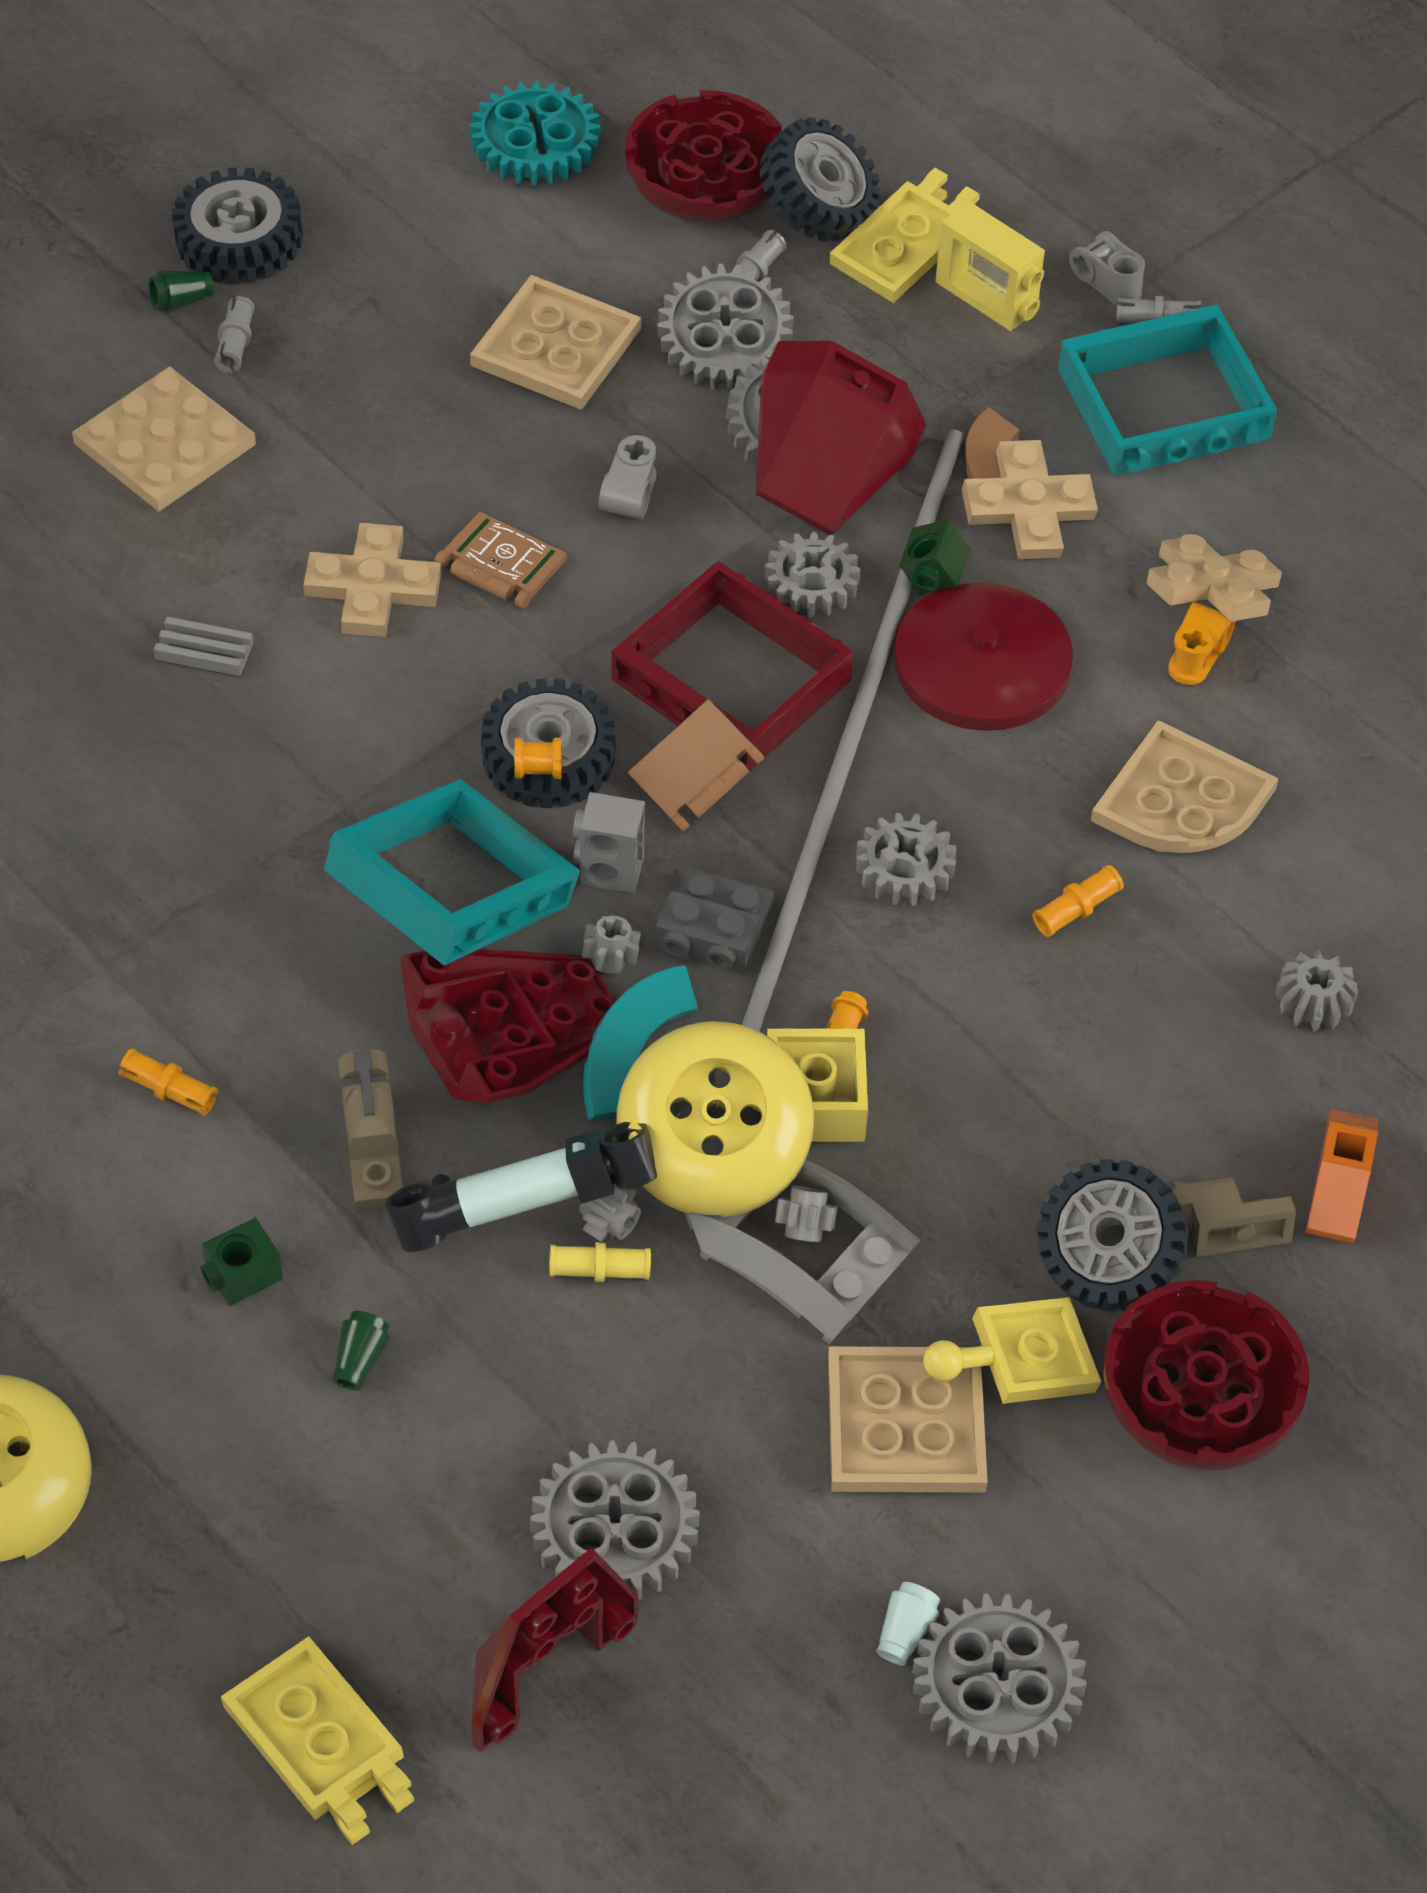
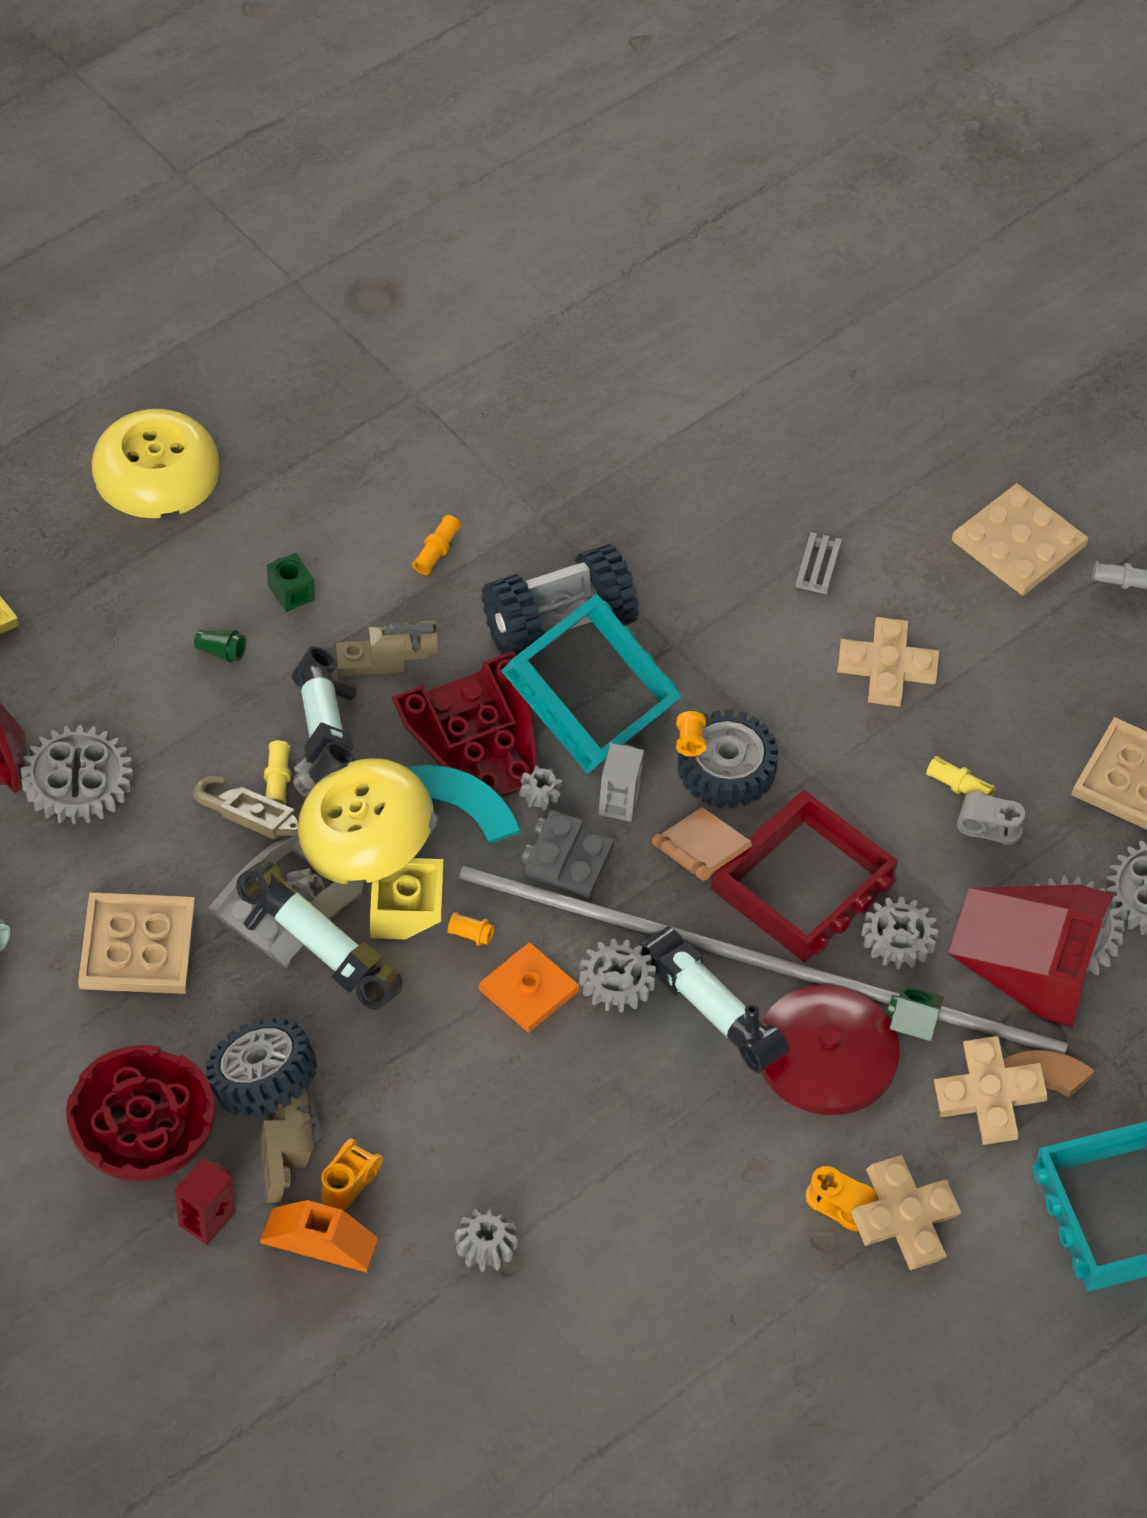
camera: 90 degrees right, 0 degrees up
(329, 959) = (528, 609): none -> black plate
(501, 559) = (912, 740): medium nougat piece -> none
(569, 509) = (957, 778): none -> light yellow pin
(669, 1289) = (248, 809): none -> dark tan plate
(898, 783) = (684, 972): none -> piece
(925, 960) = (528, 987): none -> orange plate
(932, 1138) = (351, 962): none -> black piece
(1030, 1348) = (181, 1015): light yellow plate -> none
(1078, 900) = (579, 1088): light orange pin -> none
(1182, 794) = (684, 1170): tan plate -> none
(1242, 1143) = (351, 1169): none -> light orange piece
(1328, 1286) = (205, 1200): none -> dark red brick

